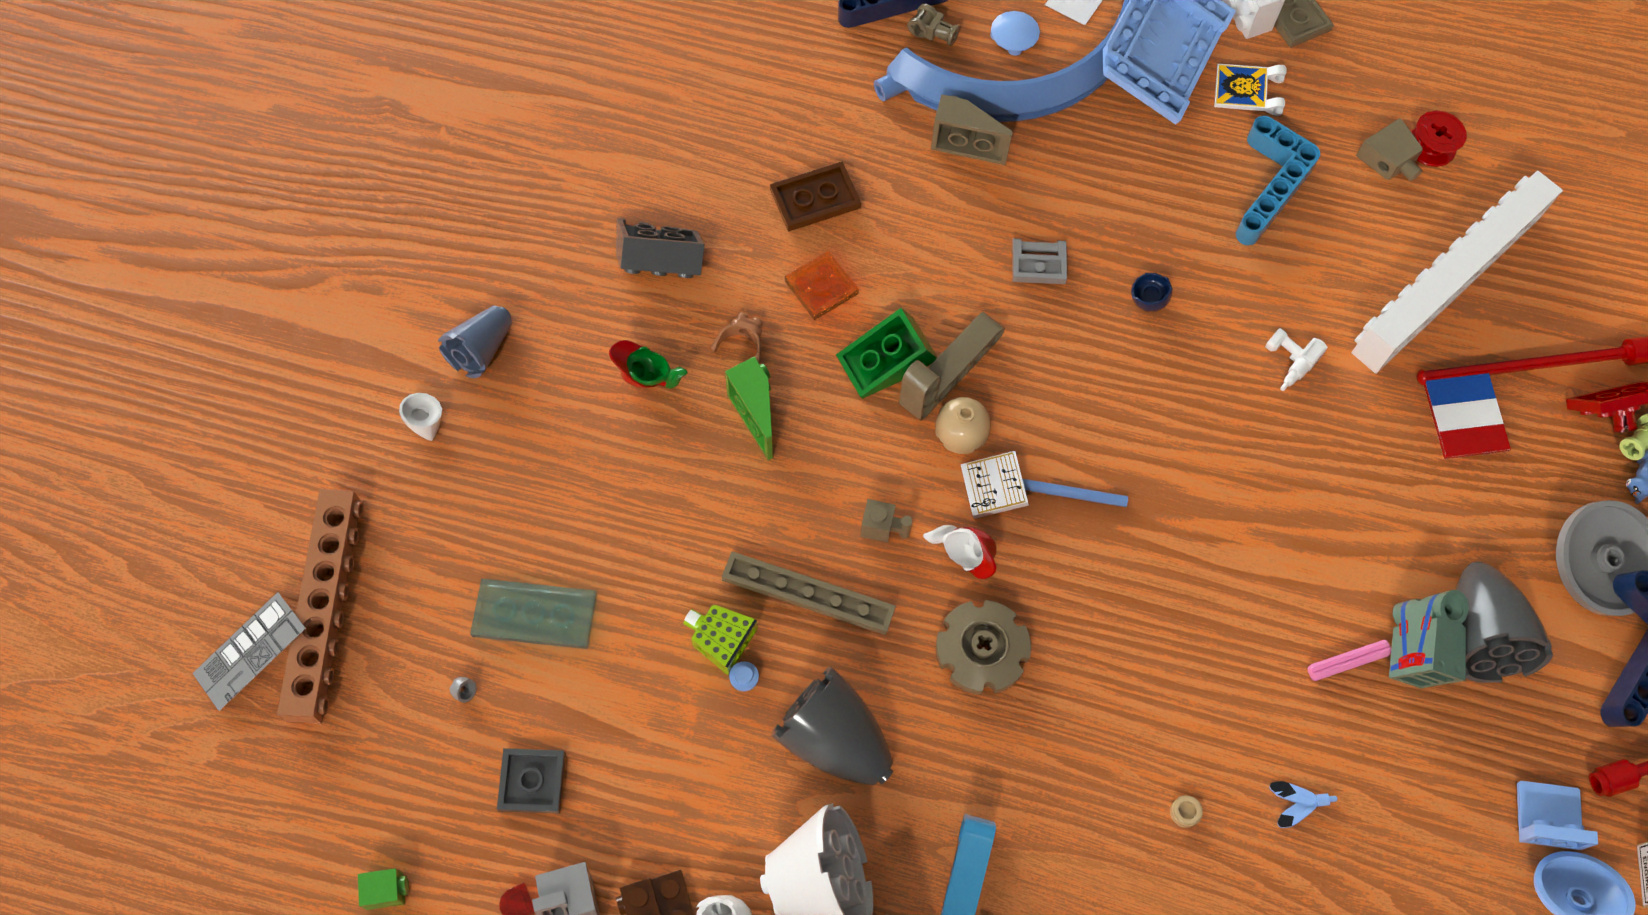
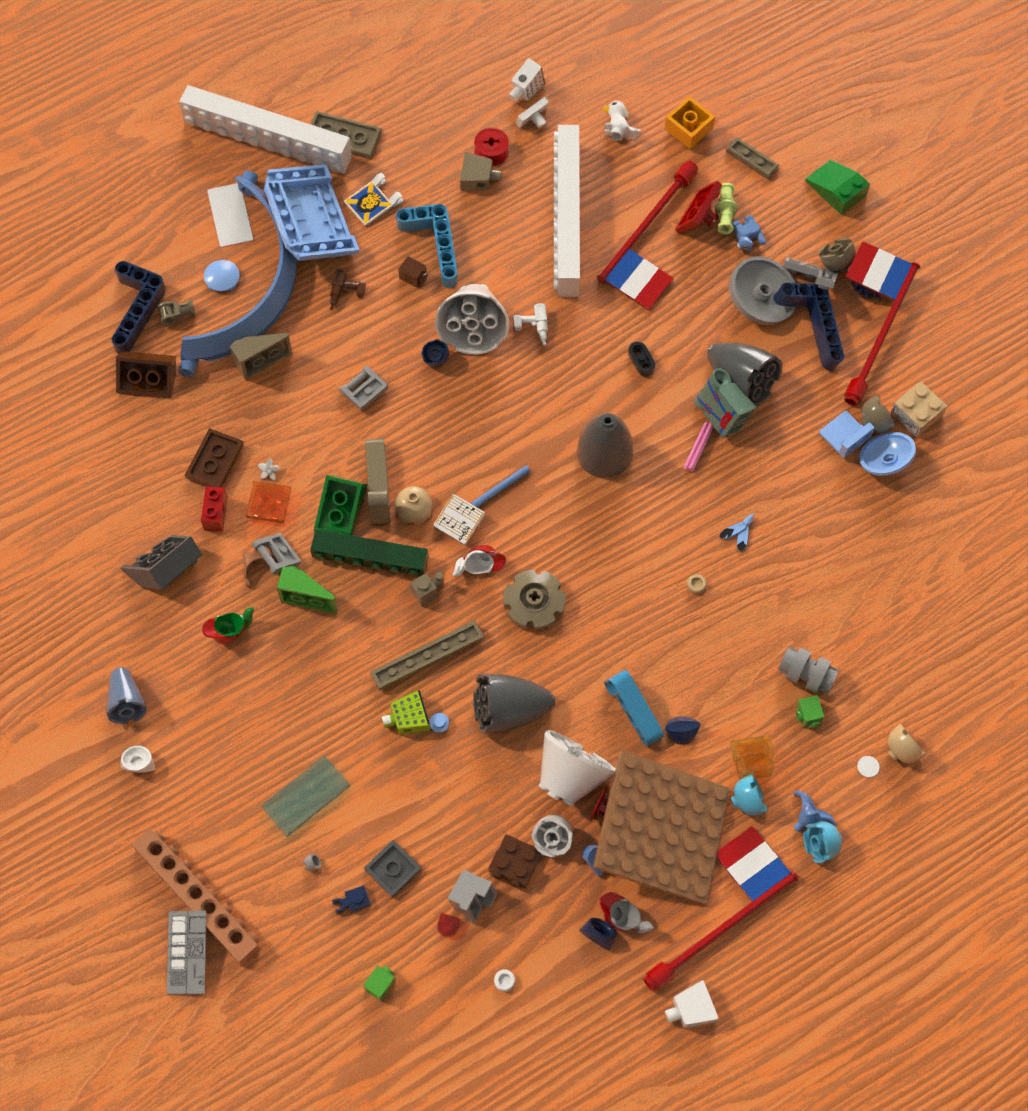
camera: 45 degrees left, 0 degrees up
(460, 773) = (355, 899): none -> dark blue plate
(761, 242) = (214, 508): none -> red brick
(779, 344) = (281, 551): none -> light grey plate
(840, 58) = (145, 374): none -> reddish brown slope
(856, 253) = (268, 469): none -> white plant
(865, 431) = (369, 553): none -> dark green brick
(1126, 139) = (340, 284): none -> reddish brown piece
(1215, 190) = (413, 272): none -> reddish brown brick
(1224, 289) = (472, 320): none -> white cone
(1238, 557) = (605, 446): none -> dark grey cylinder
(1381, 504) = (642, 359): none -> black plate
(1520, 144) = (533, 114): none -> white tile
(1548, 103) = (527, 81): none -> white torso
(1611, 235) = (618, 126): none -> white animal
(1615, 832) = (877, 415): none -> dark tan cylinder

